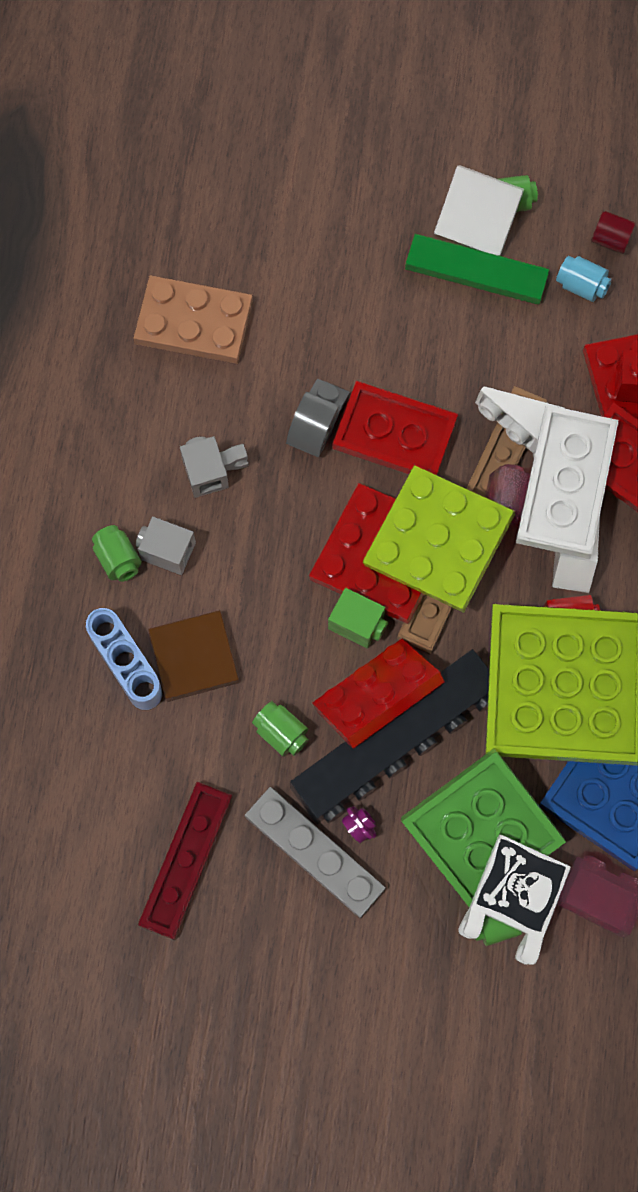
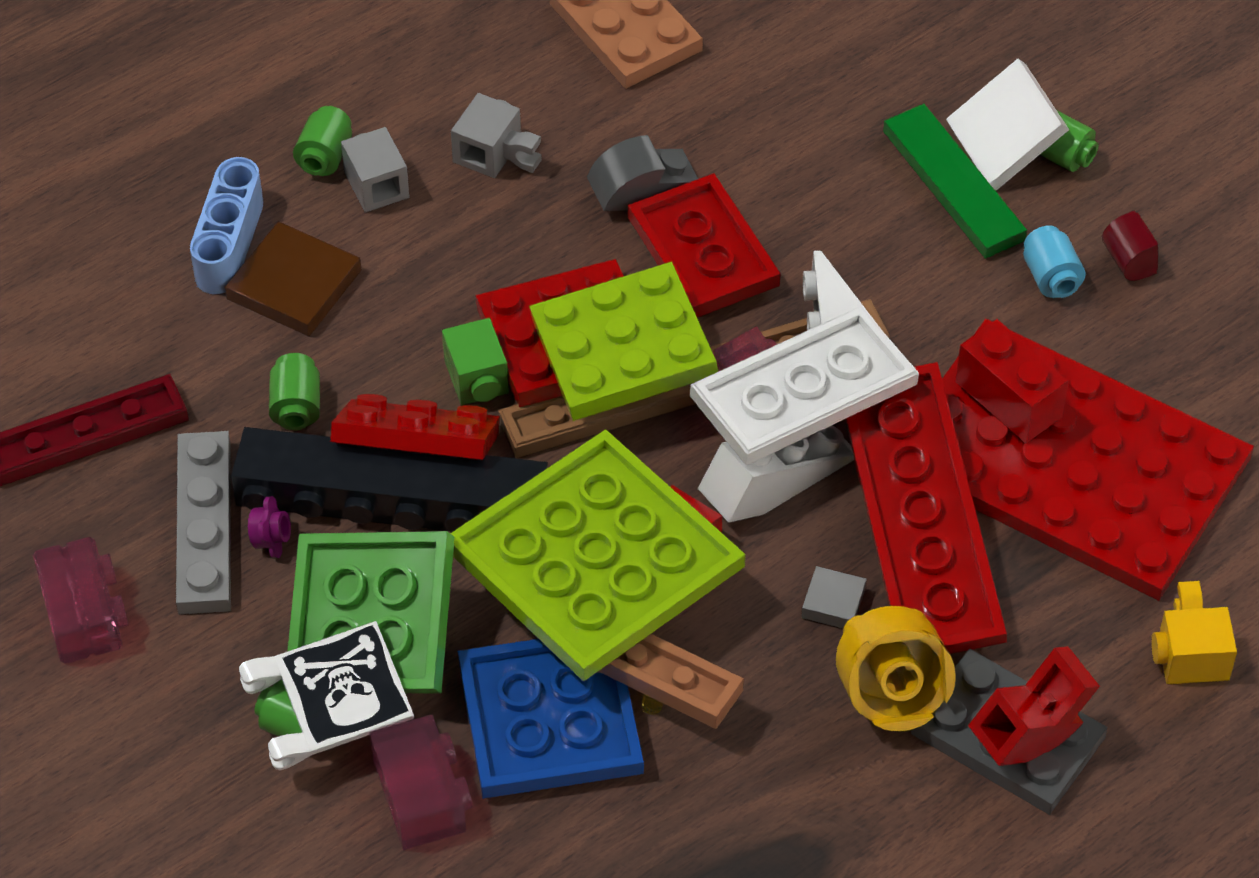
camera: 45 degrees right, 20 degrees down
(309, 967) = (79, 600): none -> clear pink brick

